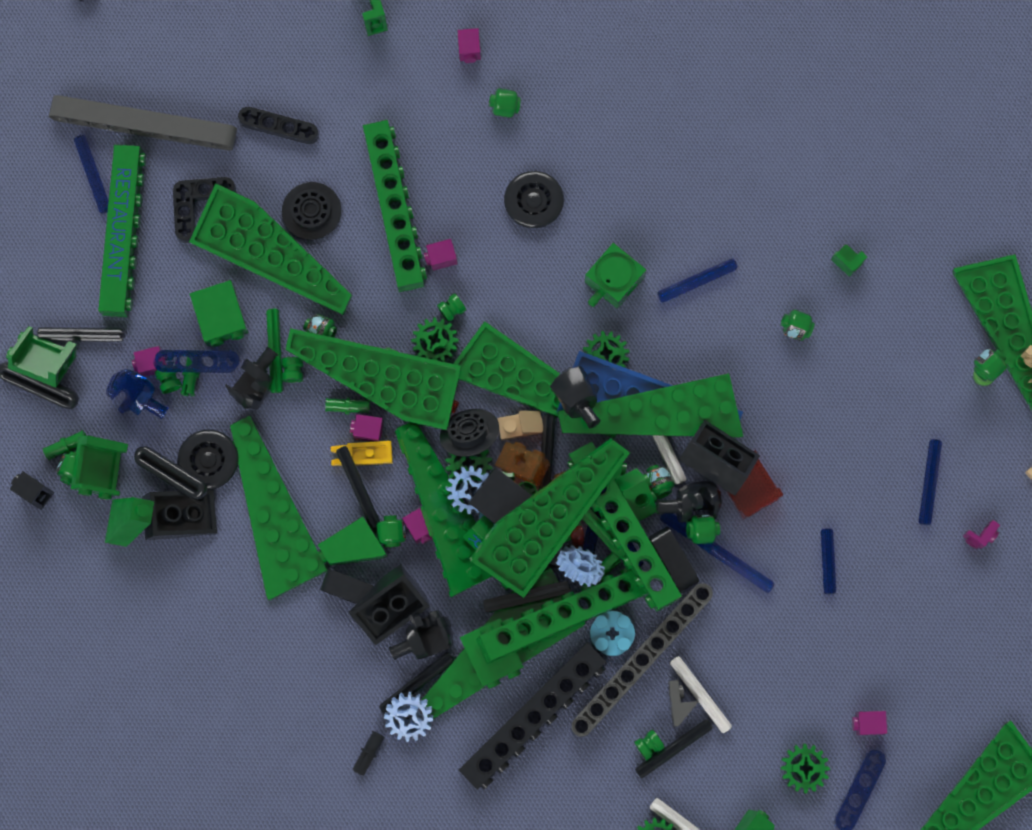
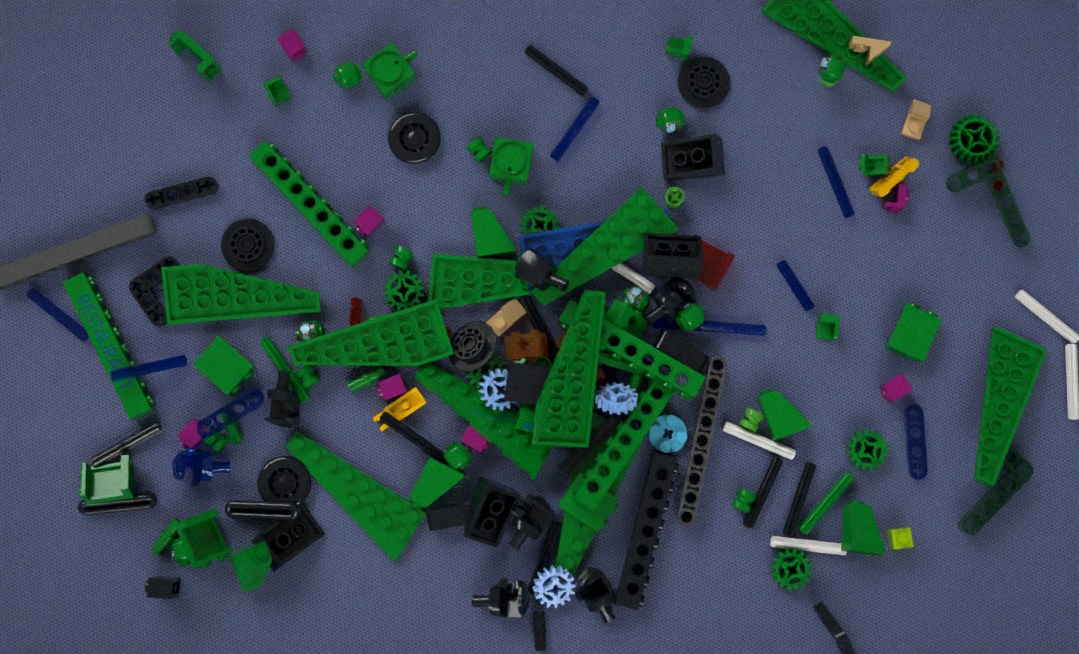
camera: 35 degrees left, 5 degrees up
(145, 272) = (147, 368): none -> clear blue axle
(353, 700) = (505, 599): none -> black piece
(376, 333) = (355, 311): none -> clear red axle
(428, 79) = (277, 90): none -> green panel
(447, 750) = (598, 593): none -> black piece
(549, 121) = (390, 70): none -> green piece
(550, 335) = (489, 235): none -> green slope
(590, 246) = (479, 149): none -> green wheel
(678, 710) = (750, 461): dark grey slope -> none
(704, 668) = (751, 420): none -> bright green wheel
(706, 777) = (799, 499): none -> black axle
(712, 213) = (556, 70): none -> black axle
(731, 797) = (826, 503): none -> green axle
(736, 681) = (780, 415): none -> green slope
(758, 400) = (676, 195): none -> bright green wheel
(799, 375) = (693, 158): none -> black slope
(836, 621) = (827, 327): none -> green panel
(853, 307) = (704, 82): none -> black wheel
(921, 678) = (913, 333): none -> green panel
(979, 487) = (874, 165): none -> green bracket
(993, 510) = (896, 175): none -> yellow hinge

